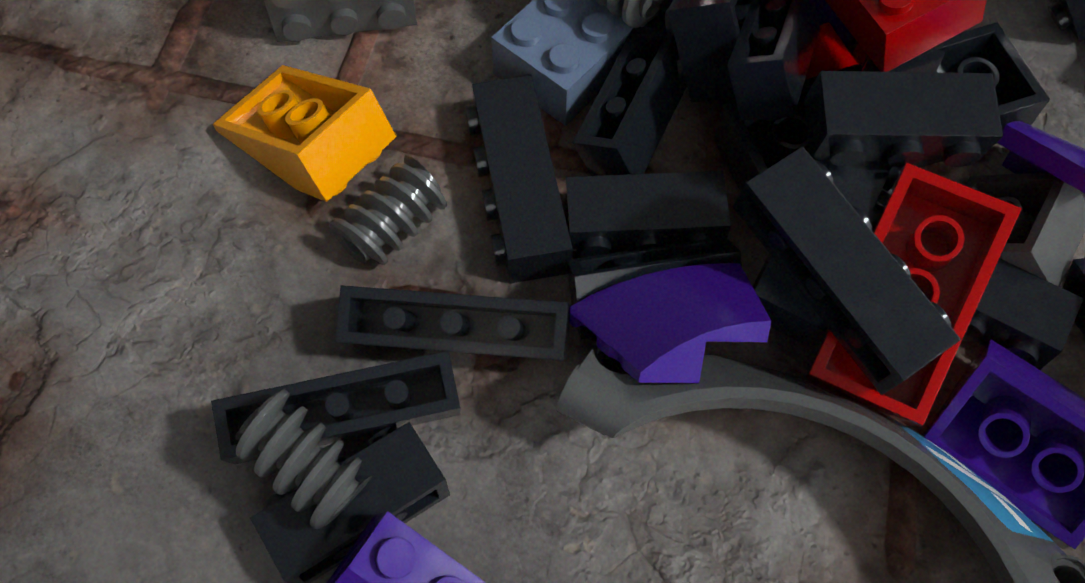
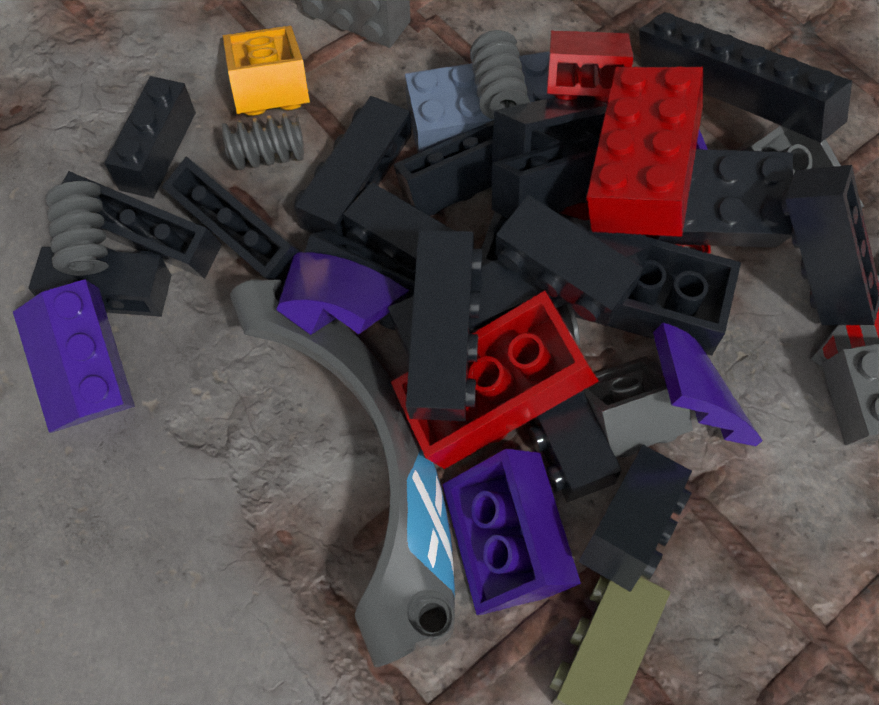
camera: 40 degrees right, 0 degrees up
(248, 295) = (151, 137): none -> black brick

